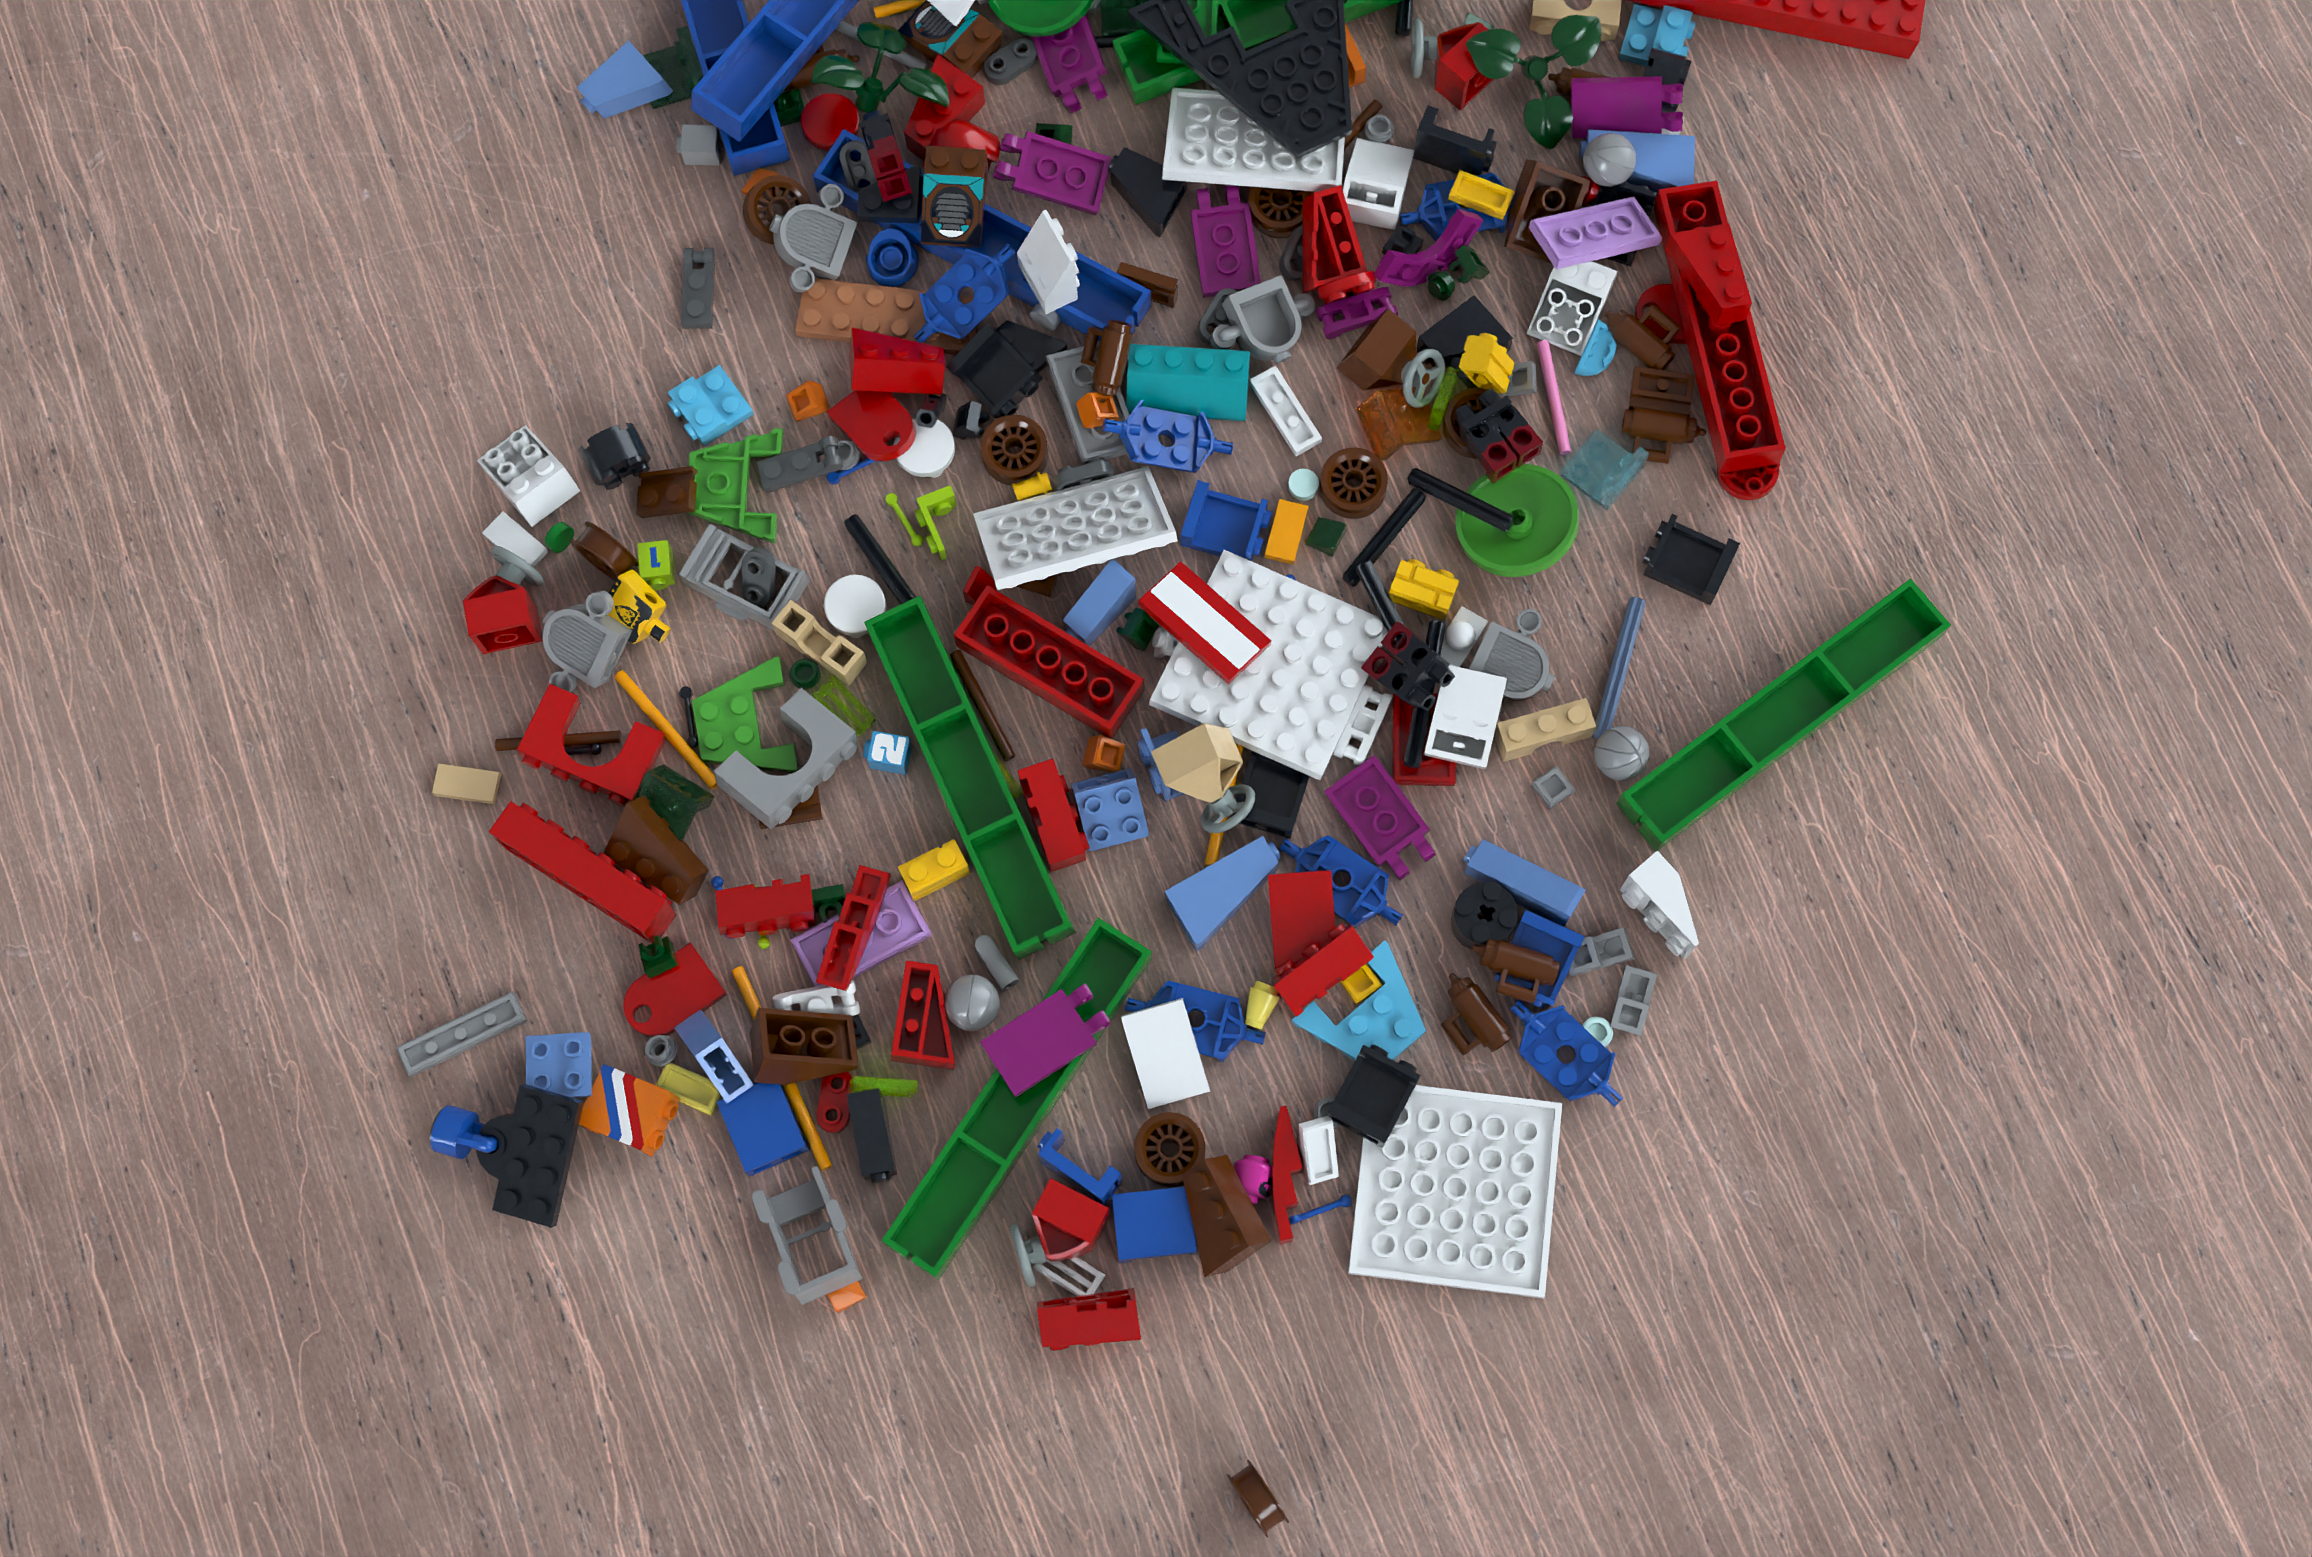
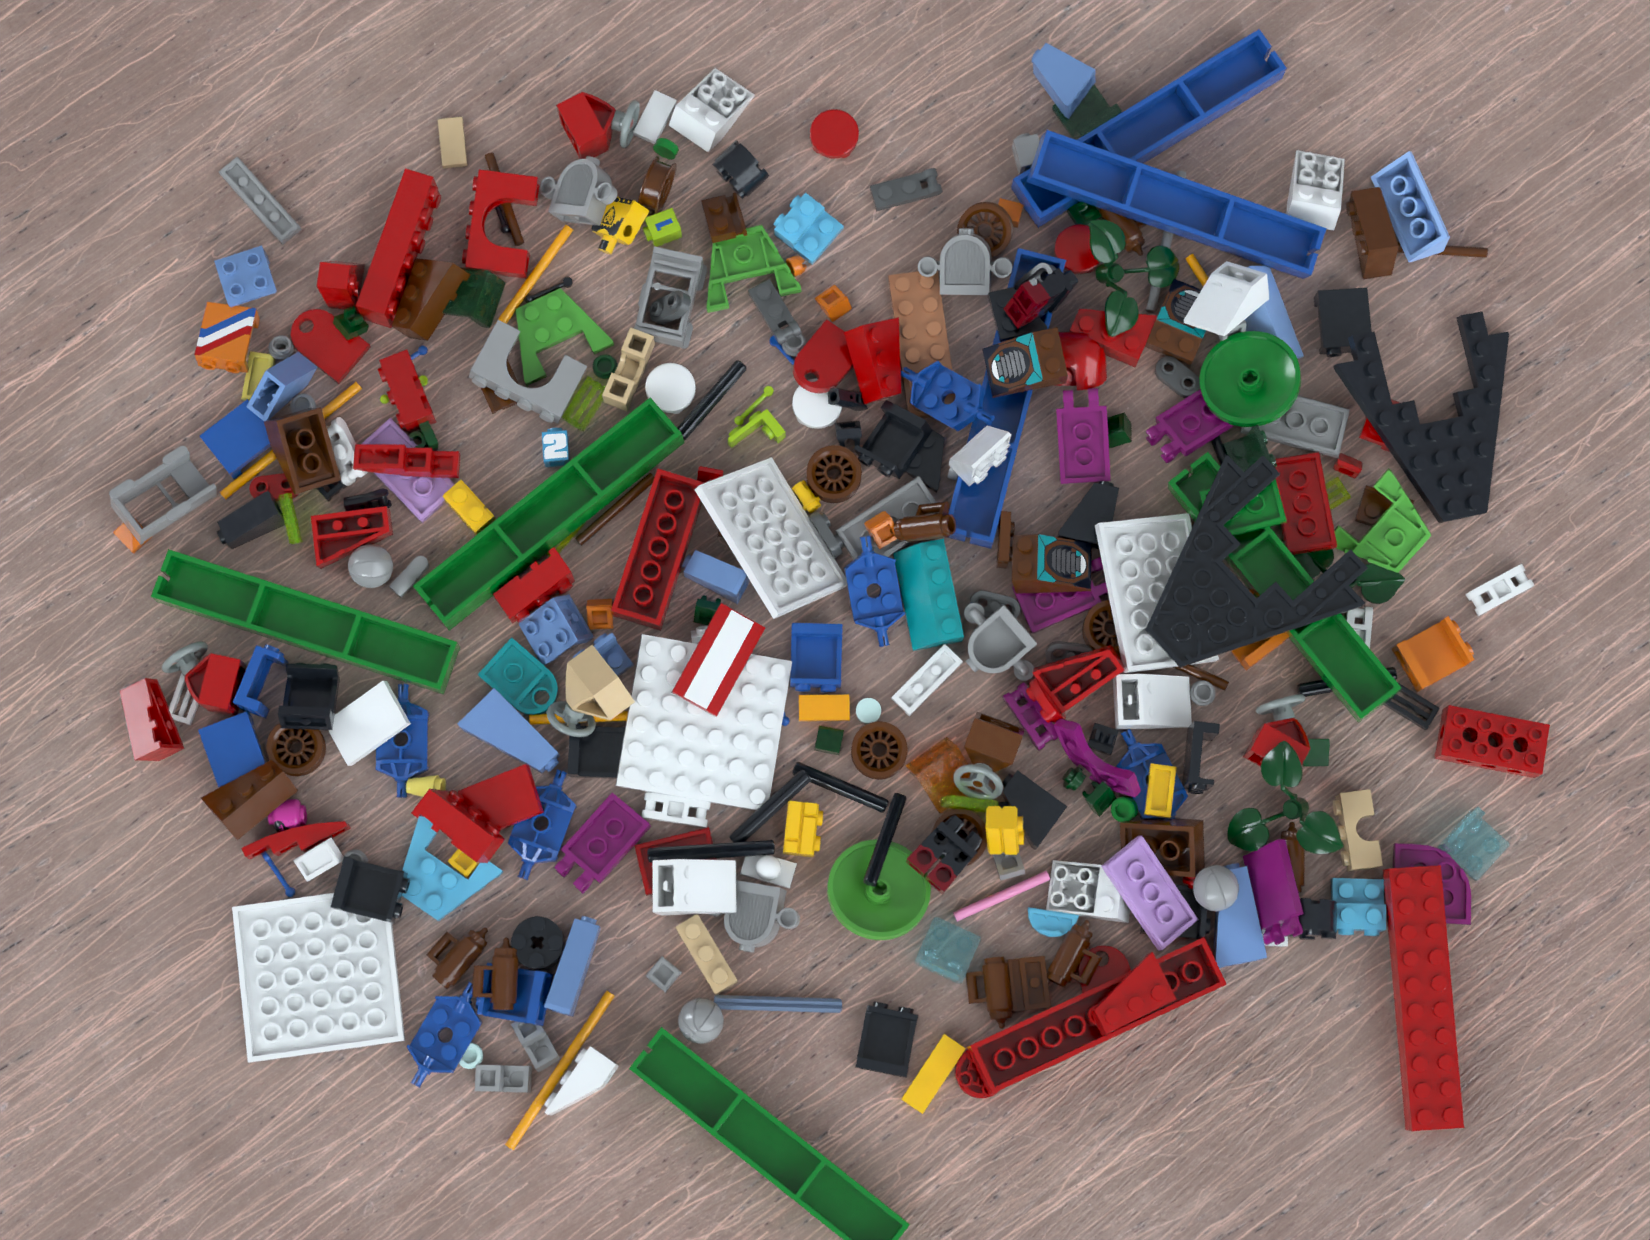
camera: 70 degrees right, 5 degrees up
(521, 1149) = (180, 269): black plate -> none
(605, 347) = (834, 134): none -> red tile
(607, 949) = (340, 283): none -> red wedge
(739, 1042) = (302, 402): none -> light grey plate
(749, 427) = (795, 265): none -> orange hinge
(888, 991) = (366, 500): none -> black bar
(891, 258) = (972, 332): blue piece -> none
(1043, 1039) = (348, 626): magenta tile -> none
(1113, 1114) = (309, 696): none -> black panel
(1156, 864) = (519, 678): none -> teal tile
(1192, 241) = (1050, 564): none -> slope
(1257, 1498) = (42, 880): reddish brown wheel -> none
(1416, 675) = (722, 831): black hips -> none
(1489, 242) = (1124, 809): none -> green tile
(1638, 933) = (559, 1070): none -> light orange piece
(1738, 521) = (933, 1074): none -> yellow tile

